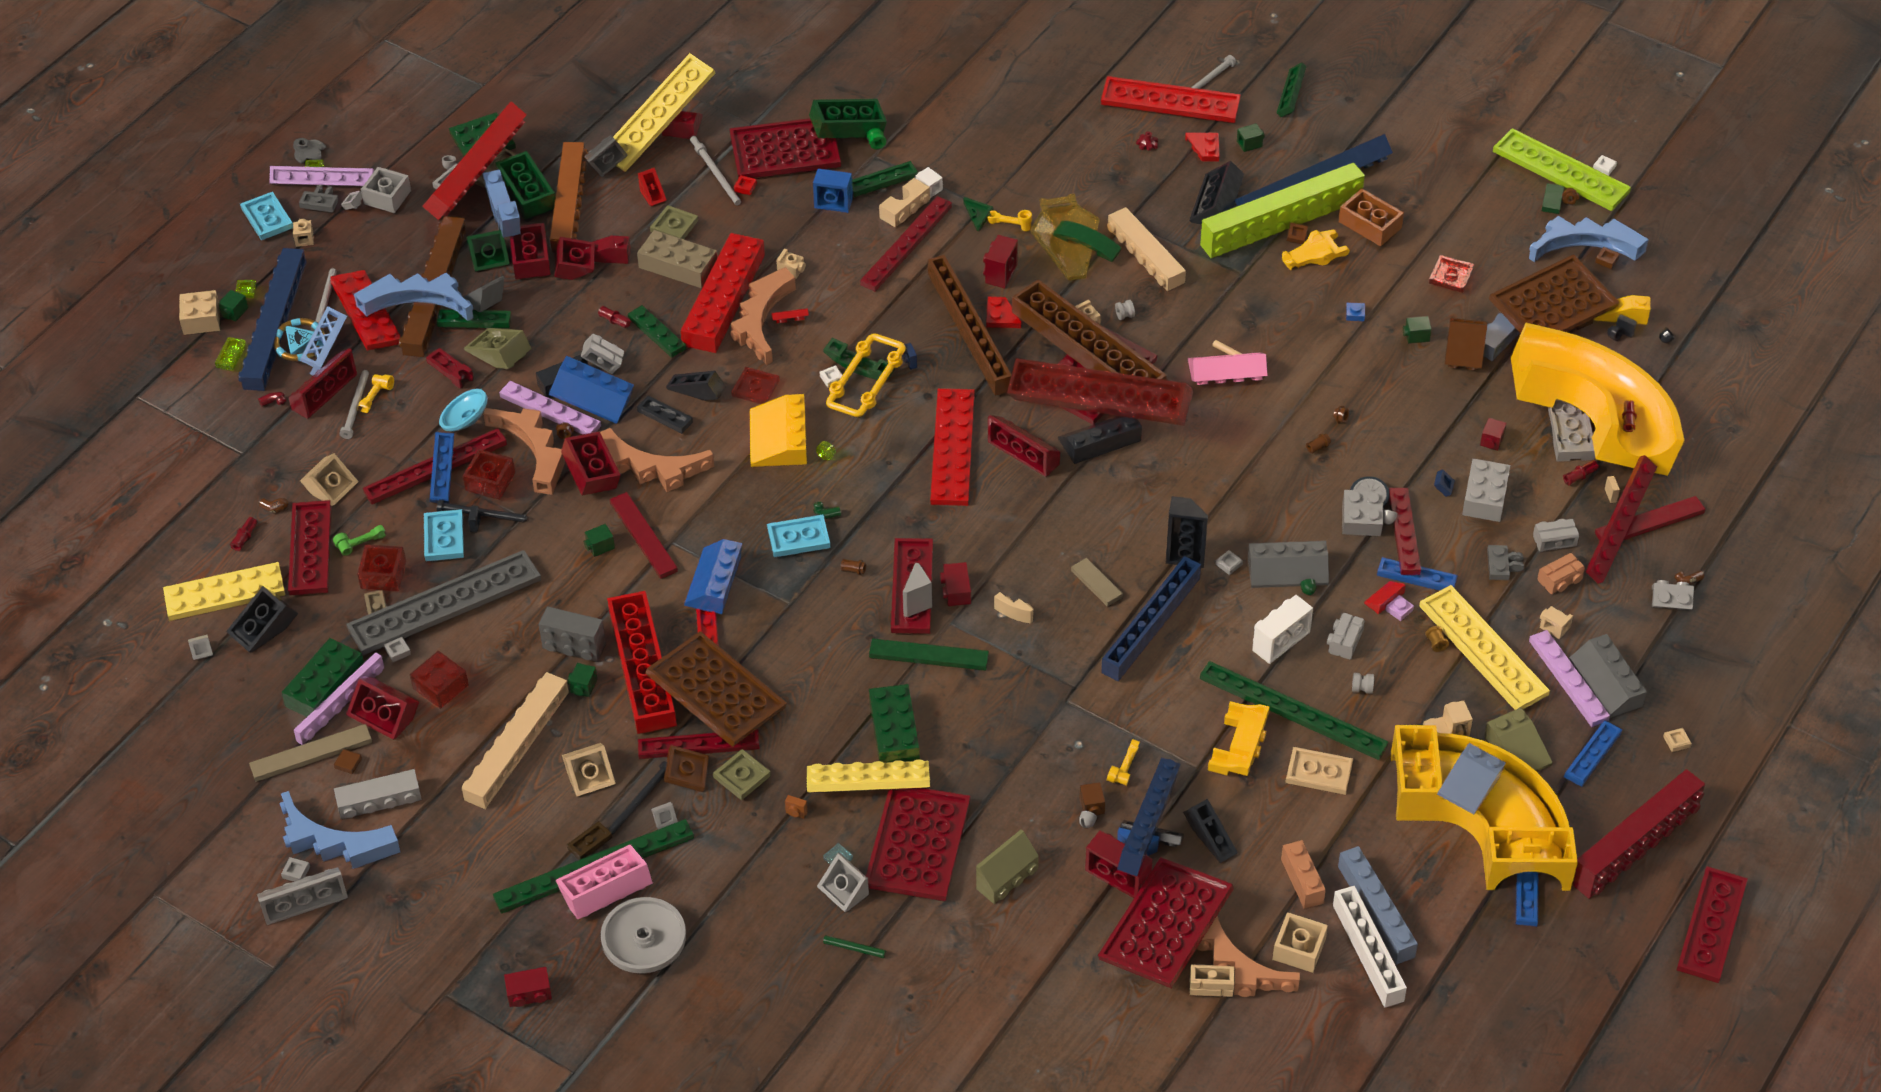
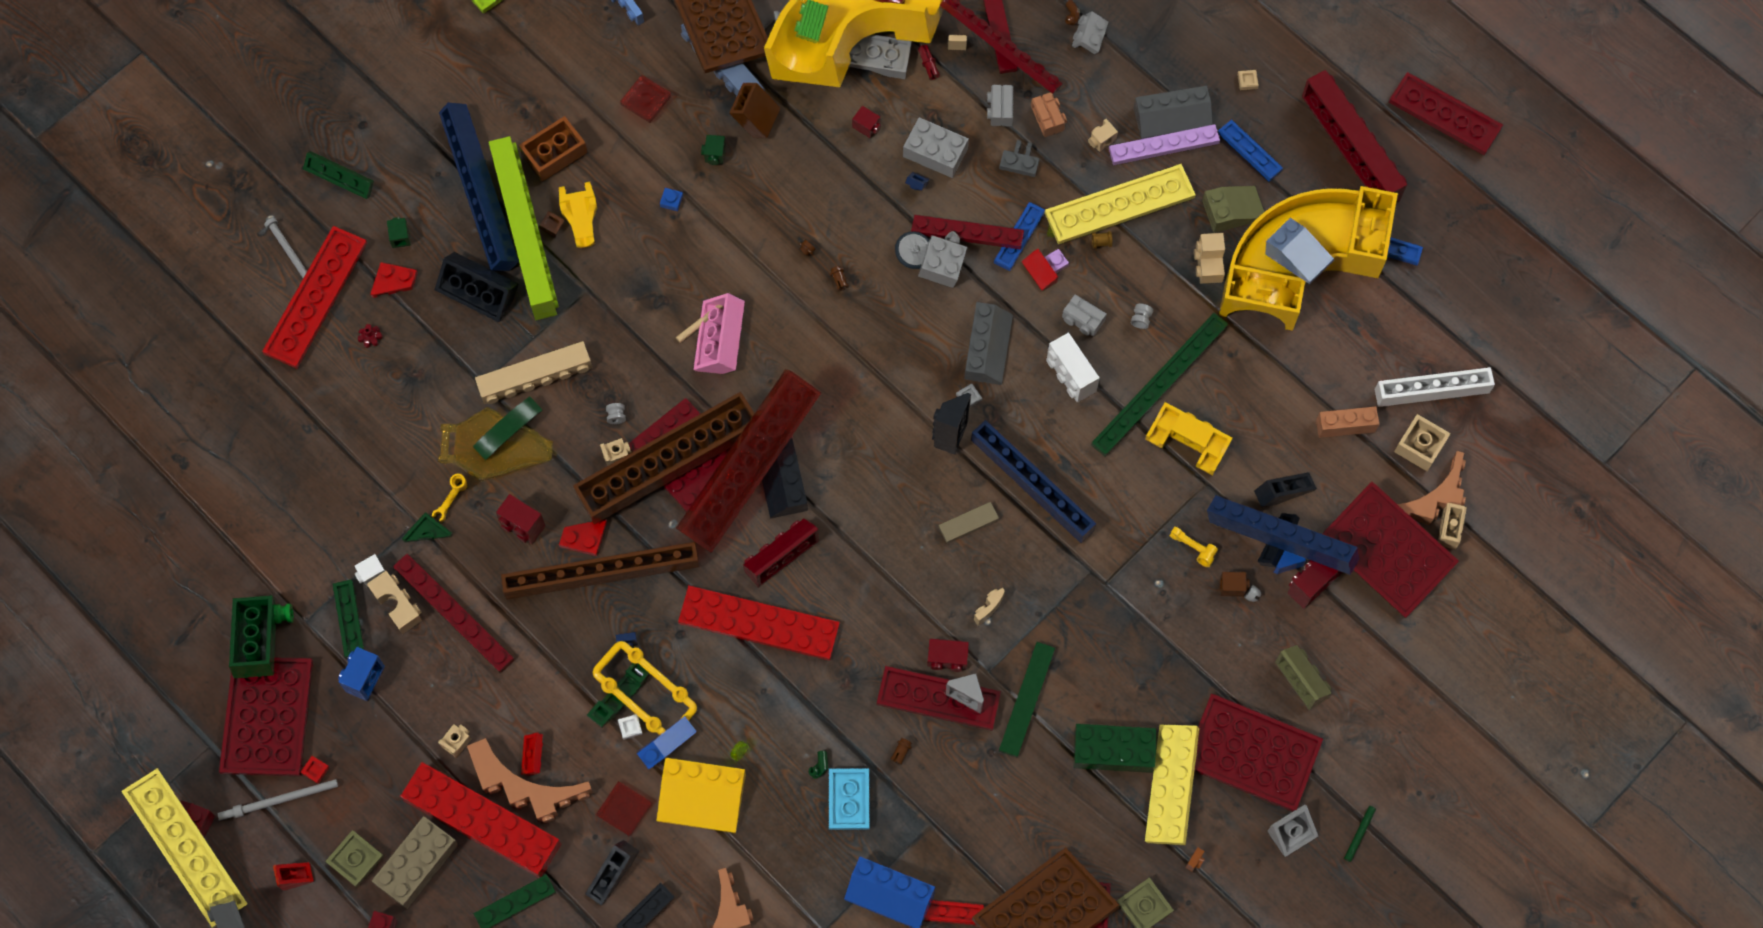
camera: 80 degrees left, 20 degrees up
(819, 396) = (666, 742): none -> slope
(831, 854) = (1256, 830): clear light blue tile -> none
(1308, 586) = (1016, 333): dark green hinge -> none
(1319, 770) = (1229, 380): tan tile -> none
(1380, 907) = (1388, 368): sand blue brick -> none
(1576, 357) = (811, 21): none -> bright green brick

